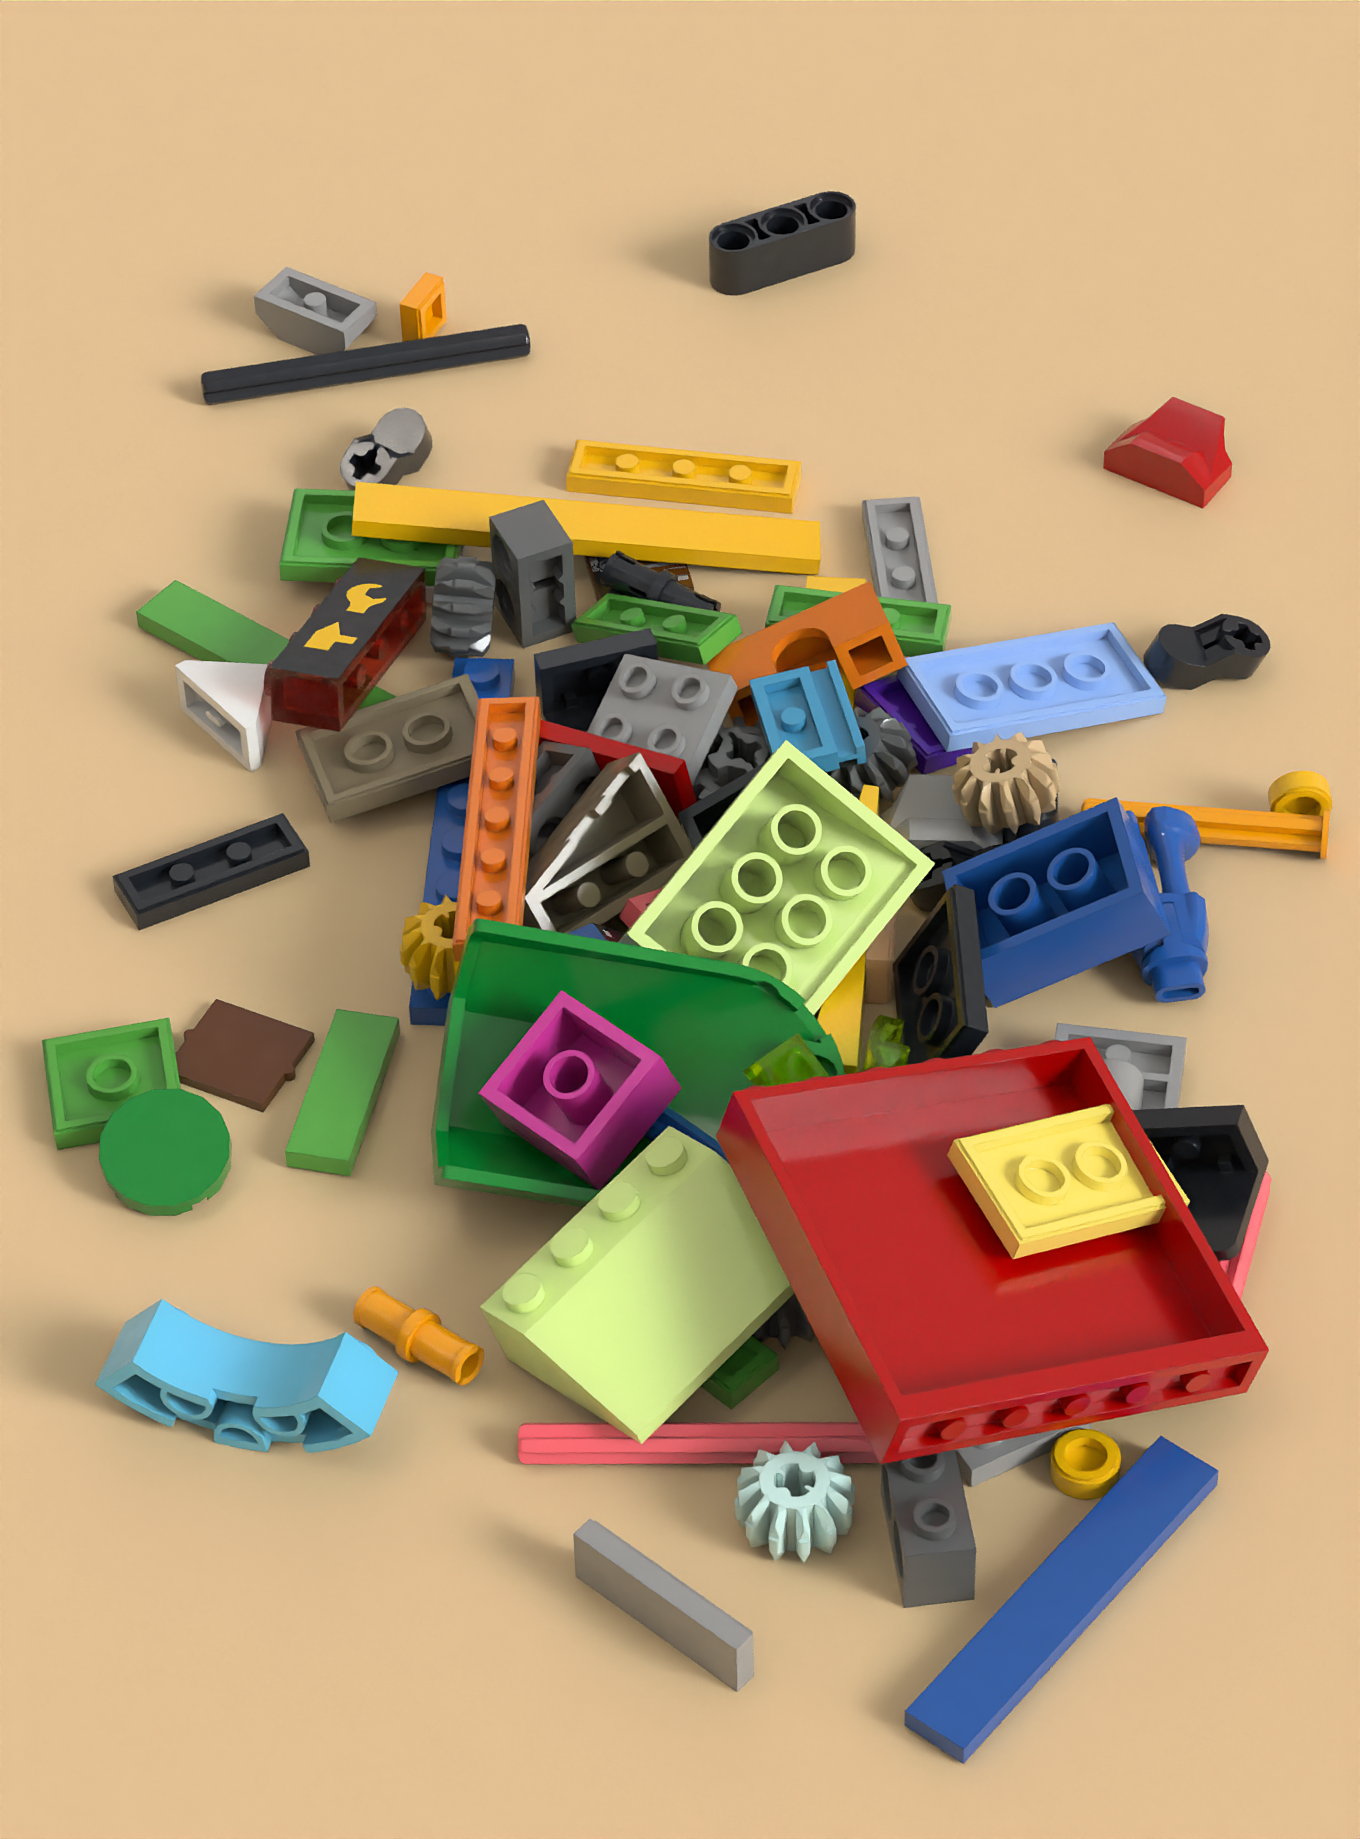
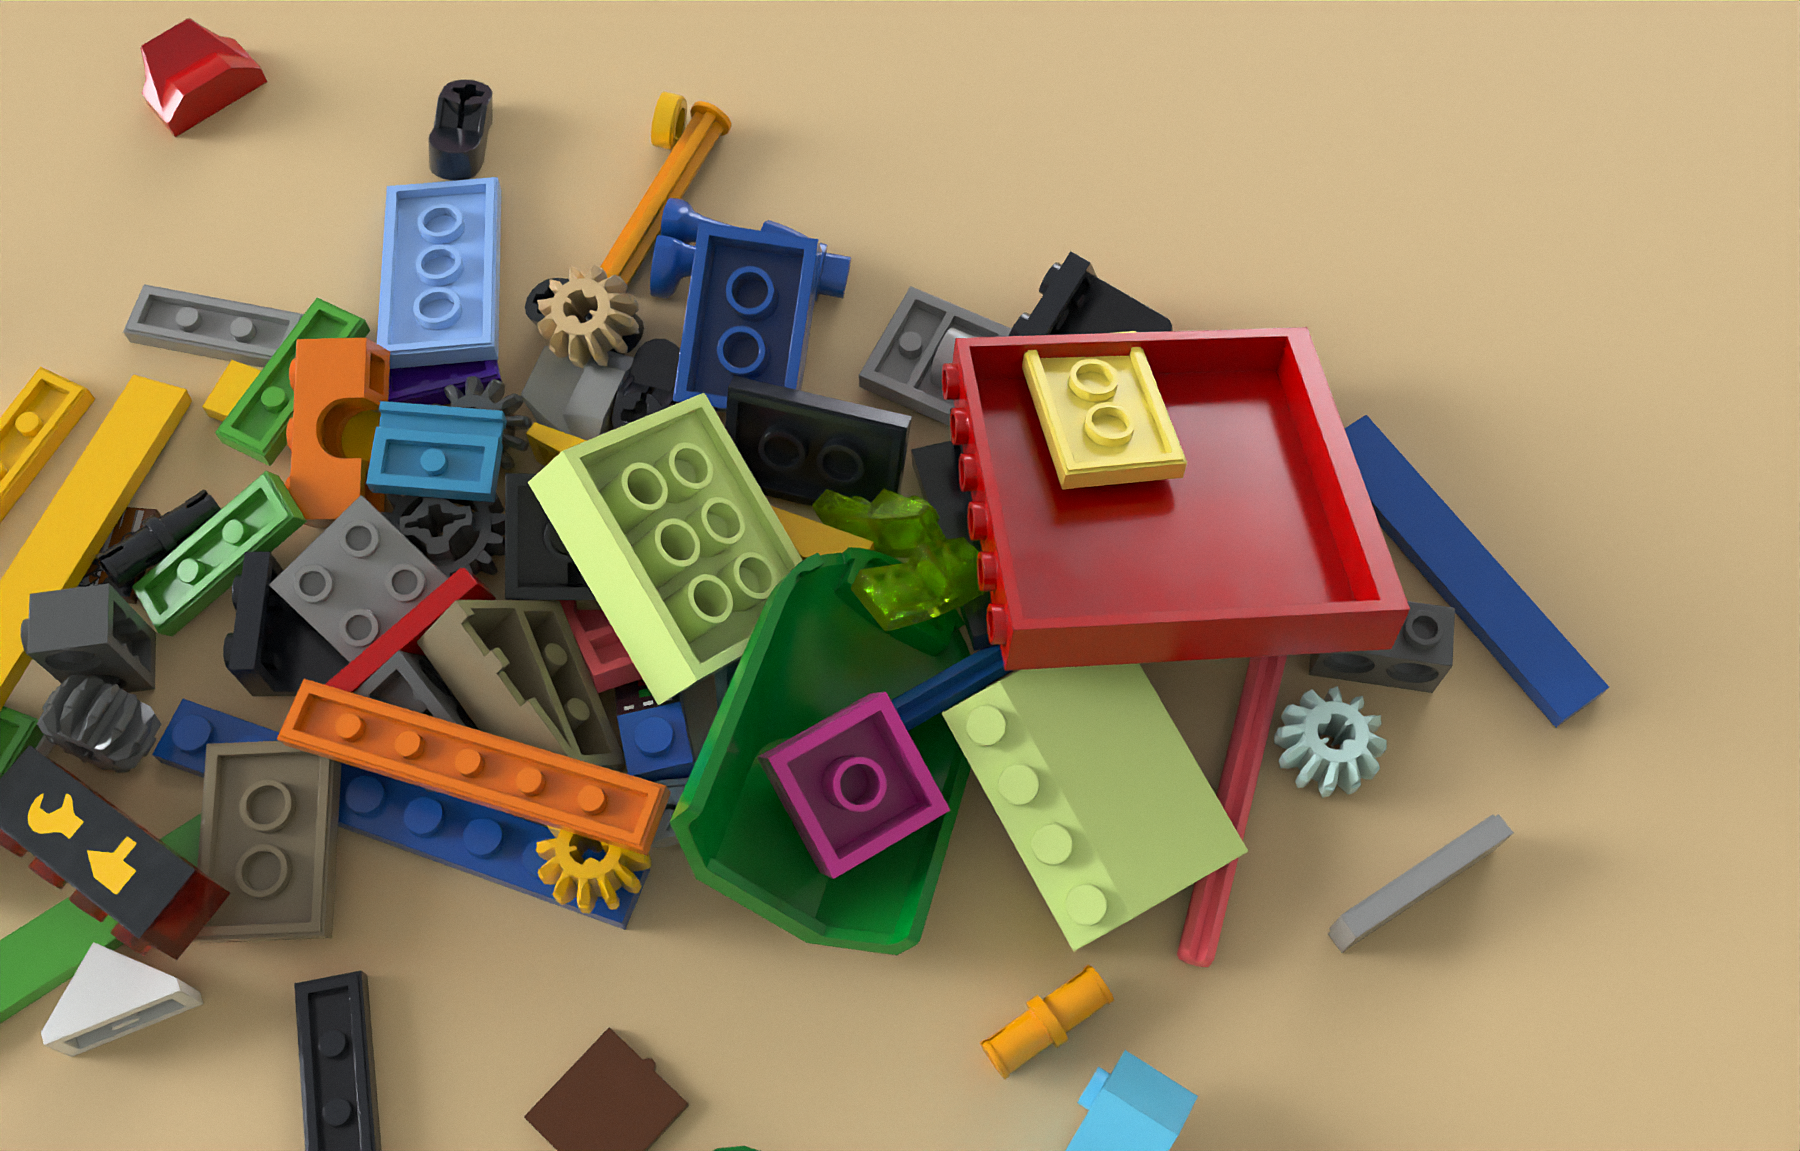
camera: 75 degrees left, 20 degrees up
(342, 1092) = (702, 1017): bright green tile -> none

